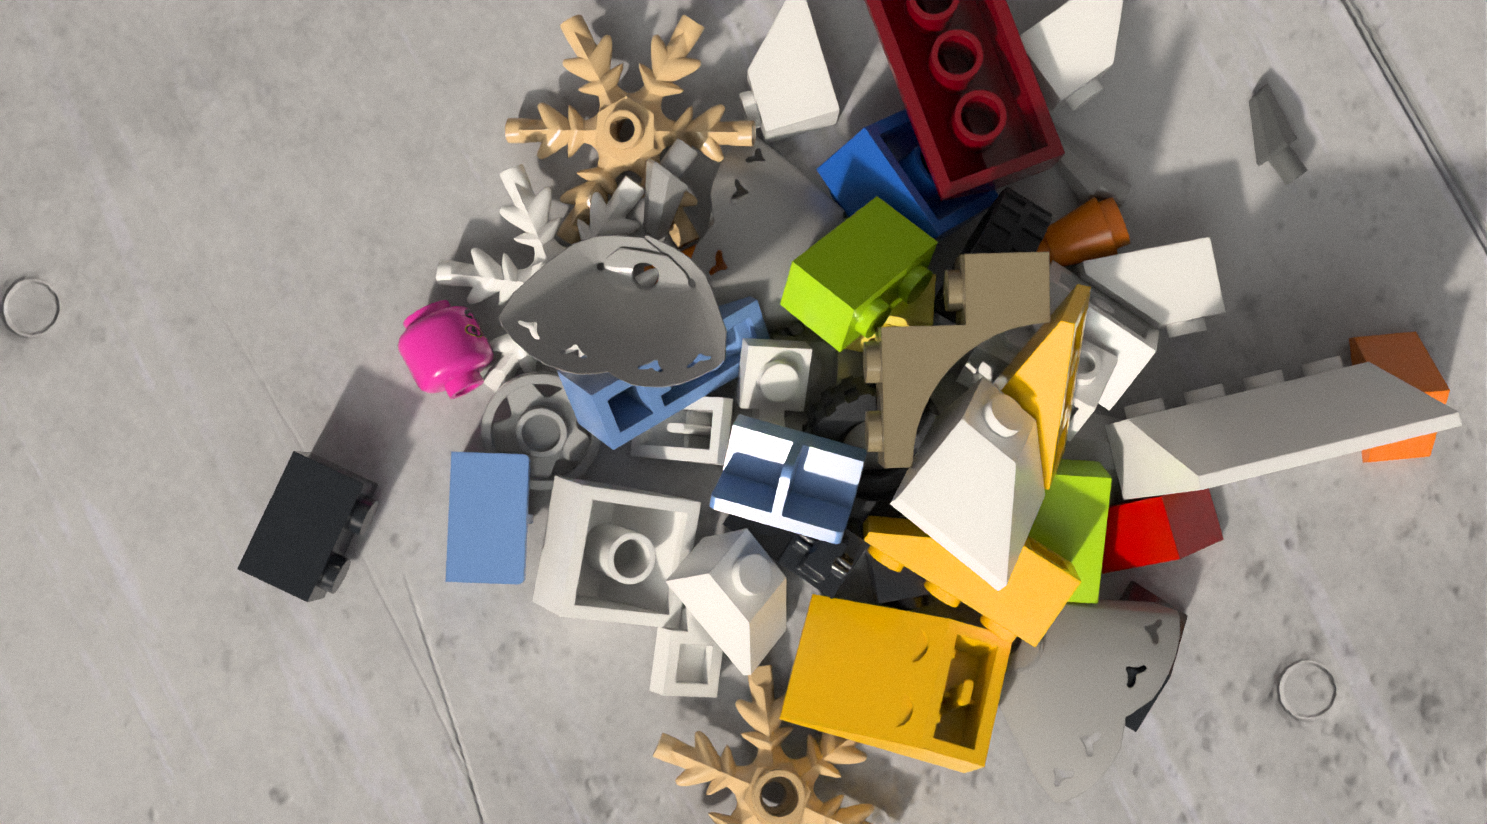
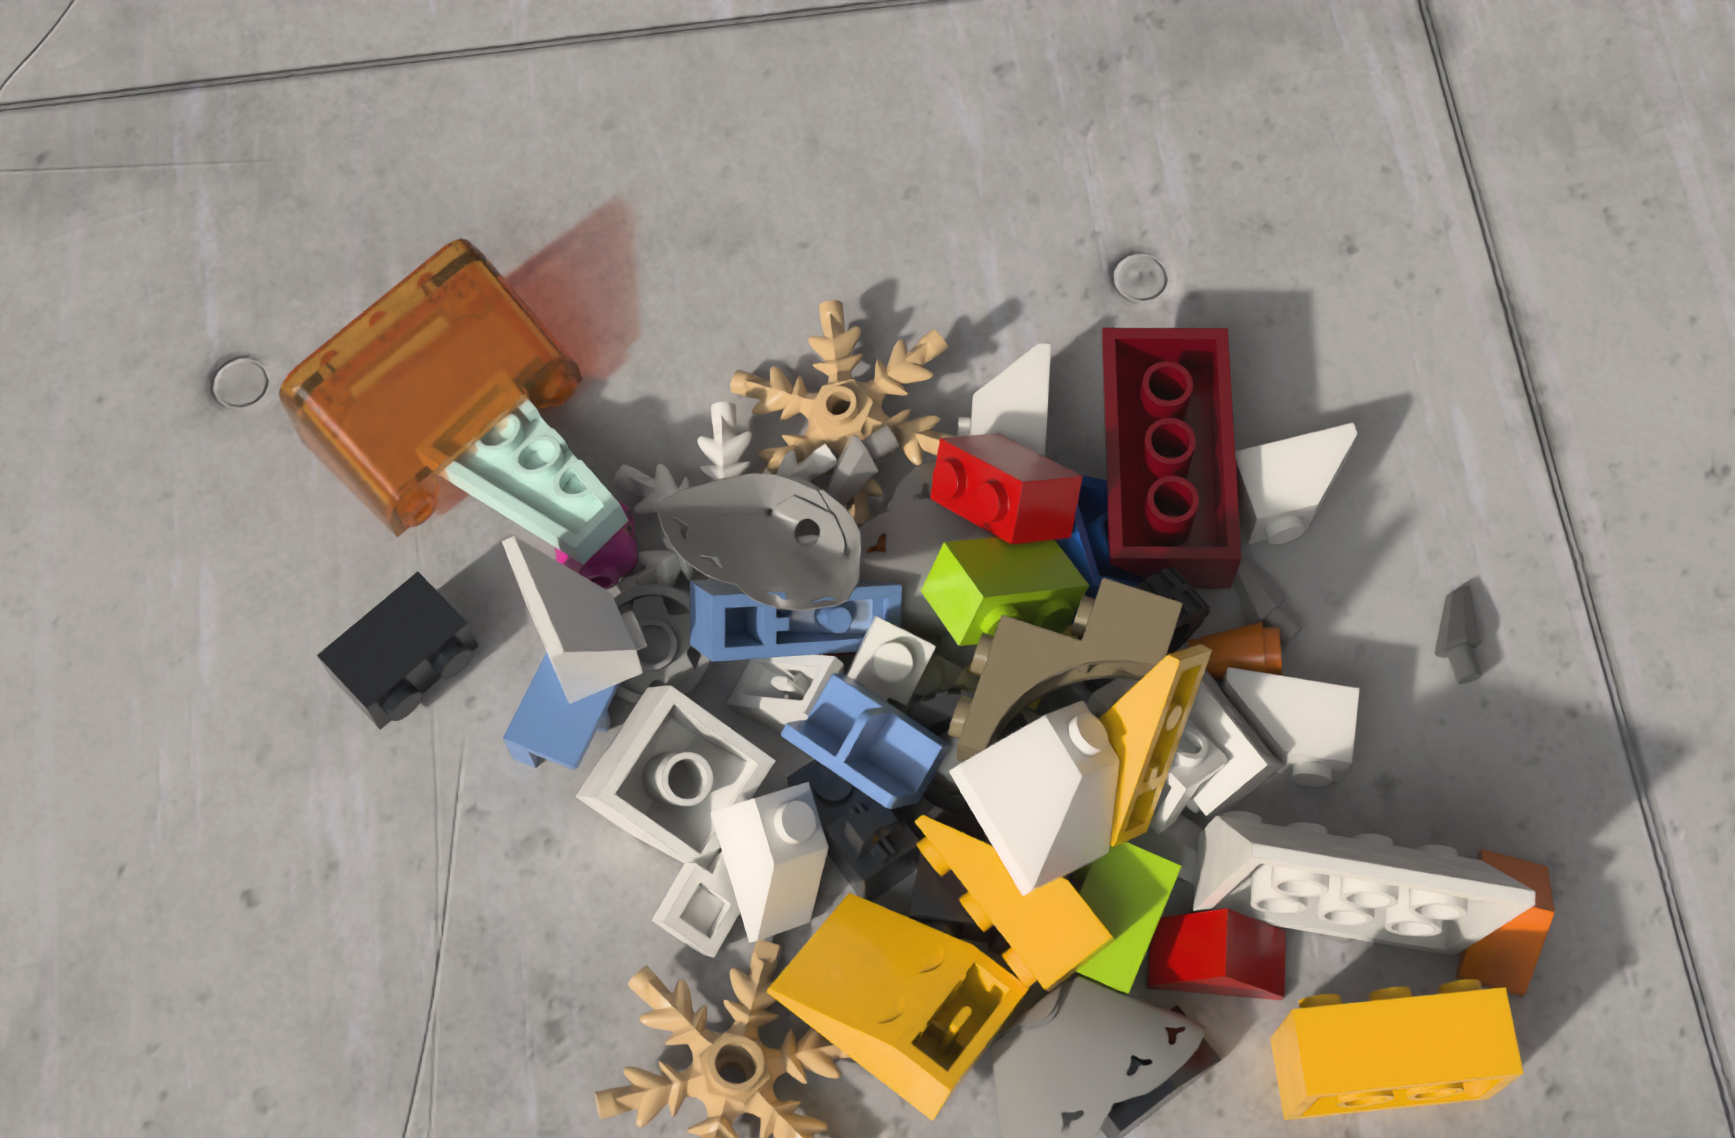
camera: 20 degrees right, 20 degrees down
(212, 251) = (423, 381): none -> clear orange windscreen
(345, 308) = (539, 484): none -> light aqua wing
(467, 465) = (577, 623): none -> white slope
(821, 168) = (1005, 488): none -> red brick
(1347, 568) = (1395, 1050): none -> yellow brick

